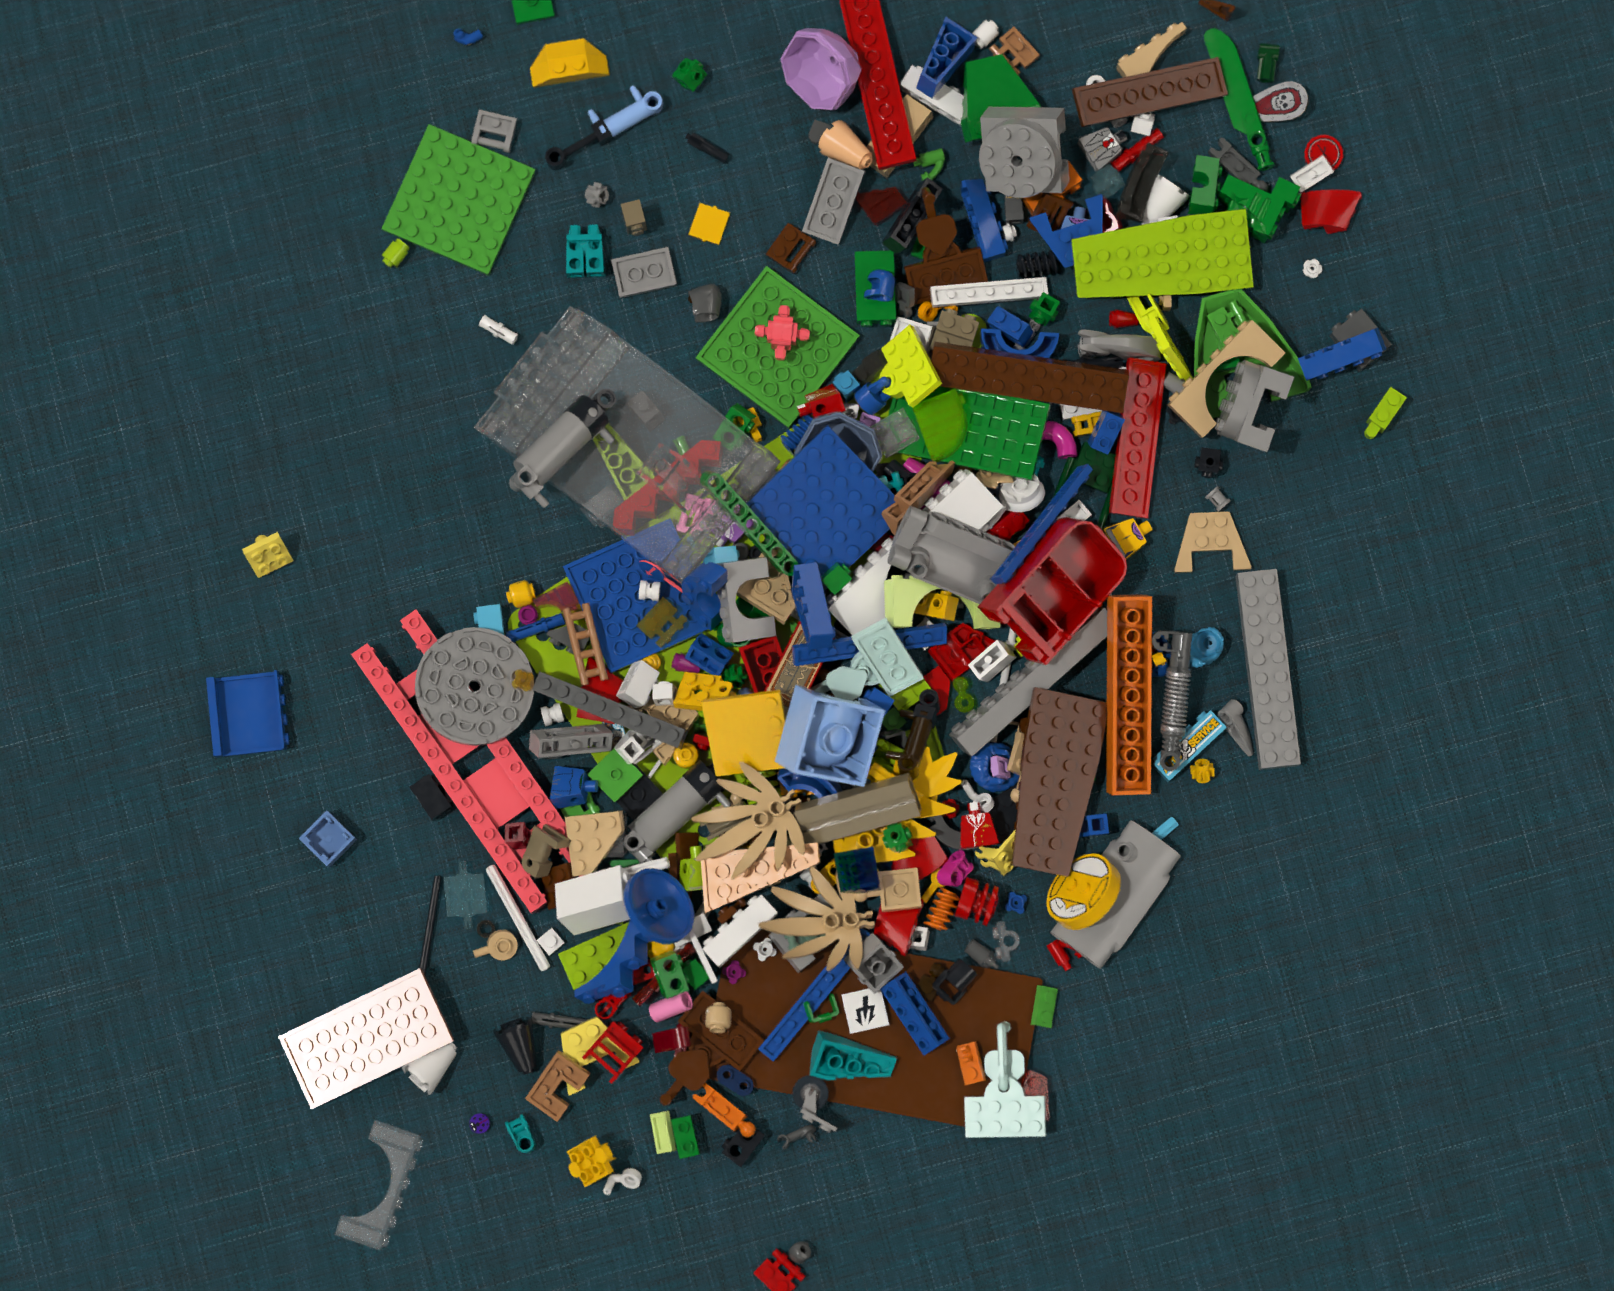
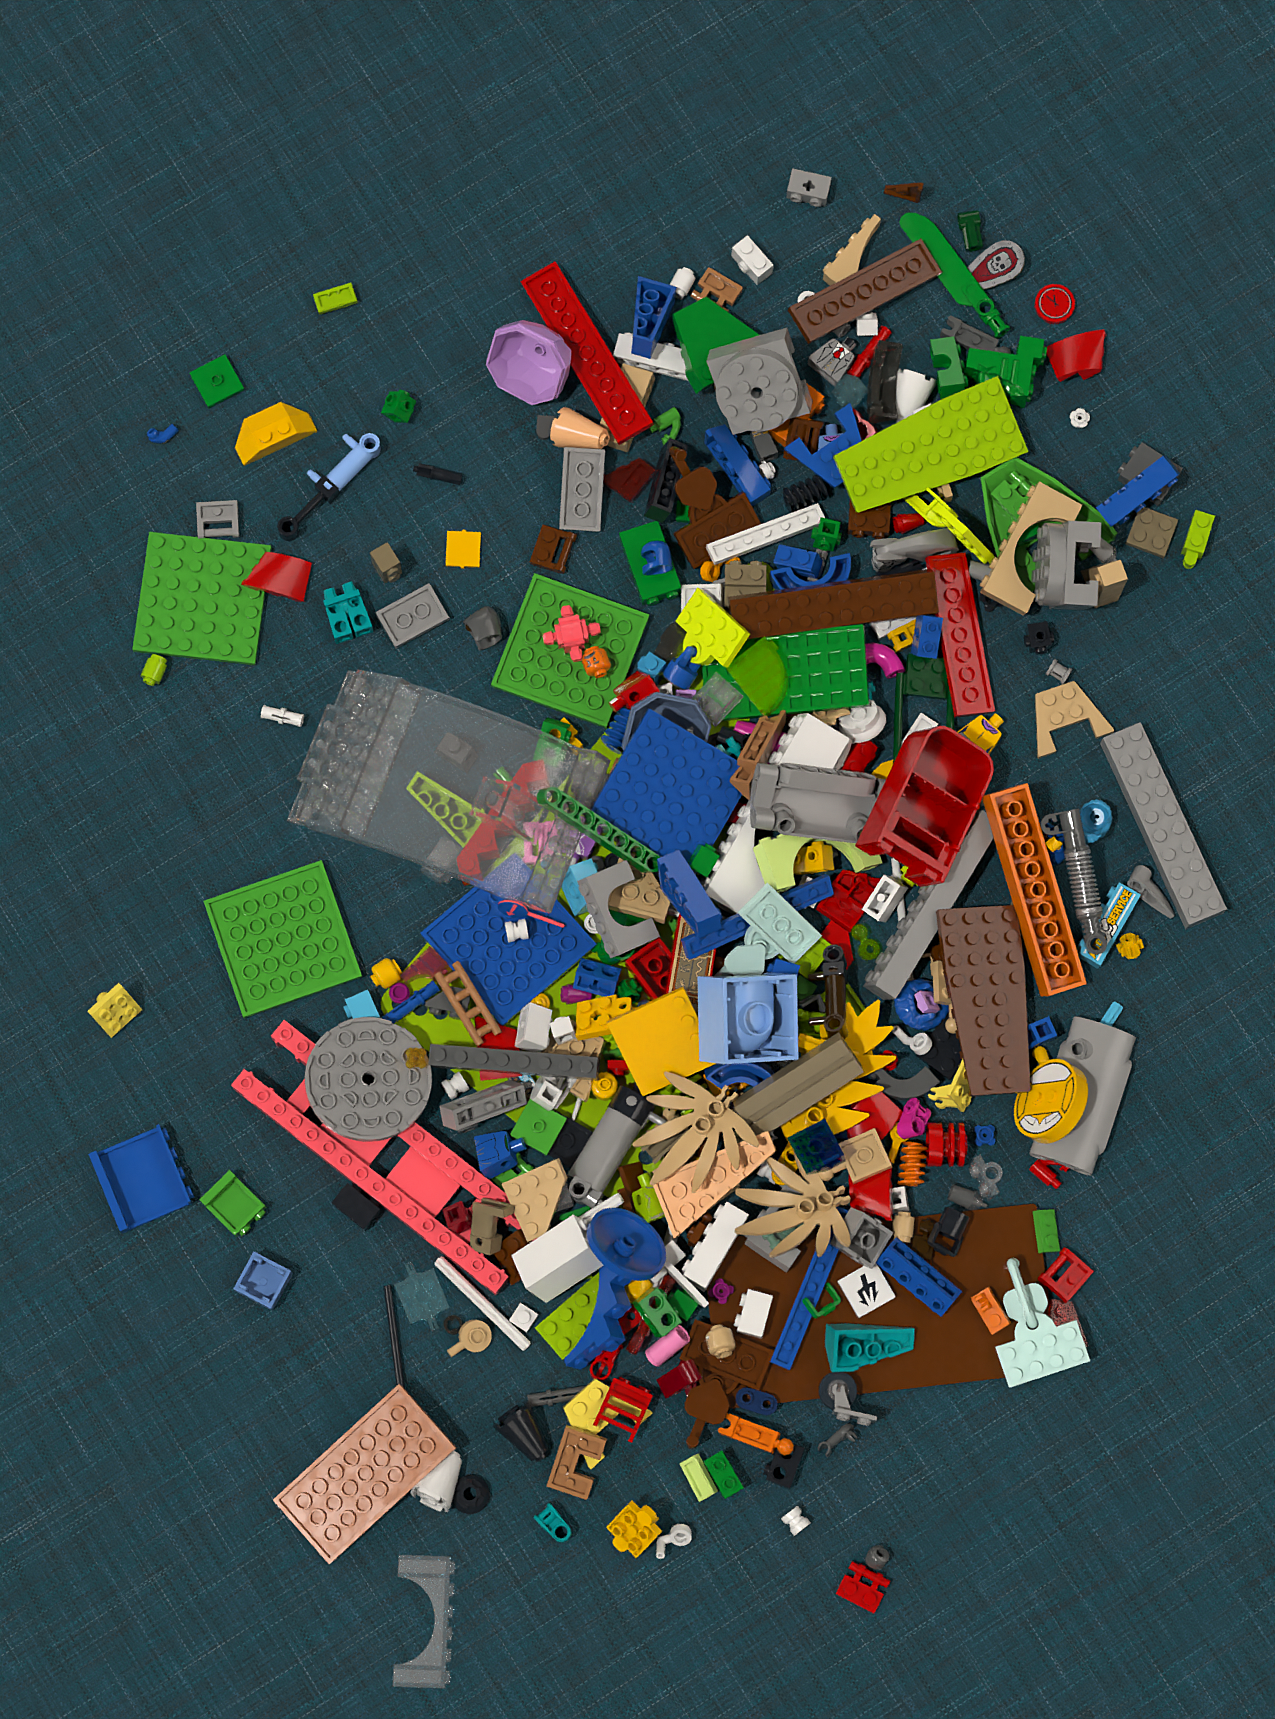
camera: 20 degrees left, 5 degrees down
(322, 761) = (233, 1204): none -> bright green panel
(437, 534) = (282, 939): none -> bright green plate
(465, 1089) = (479, 1502): none -> black piece
(479, 1123) = (507, 1526): dark purple tile -> none
(534, 200) = (280, 576): none -> red slope
(560, 442) = (383, 805): light grey piece -> none
(596, 194) = (341, 552): light grey gear -> none
(657, 618) = (533, 955): clear yellow plate -> none
(700, 593) = (569, 914): blue brick -> none
(737, 1197) = (795, 1520): none -> white wheel
(757, 1001) = (754, 1313): none -> white brick
(762, 955) = (745, 1252): white plate -> none
(796, 365) = (596, 662): none -> orange head
(903, 840) = (852, 1106): green brick -> none
(905, 297) = (684, 563): dark grey plate -> none
(915, 964) = (903, 1226): none -> tan brick
(977, 828) = (923, 1070): red torso -> none
(1038, 528) = (893, 744): blue plate -> none
(1051, 1057) = (1071, 1279): none -> red plate
(1055, 31) = (752, 260): none -> white brick
(1088, 309) = (870, 522): none -> reddish brown plate
(1089, 845) = (1040, 1054): none -> yellow arm
(1287, 428) = (1110, 579): none -> tan wedge
(1295, 400) = (1106, 552): none -> light grey piece
(1312, 173) = (1050, 324): white plate -> none
(1345, 394) = (1151, 532): none -> dark tan plate

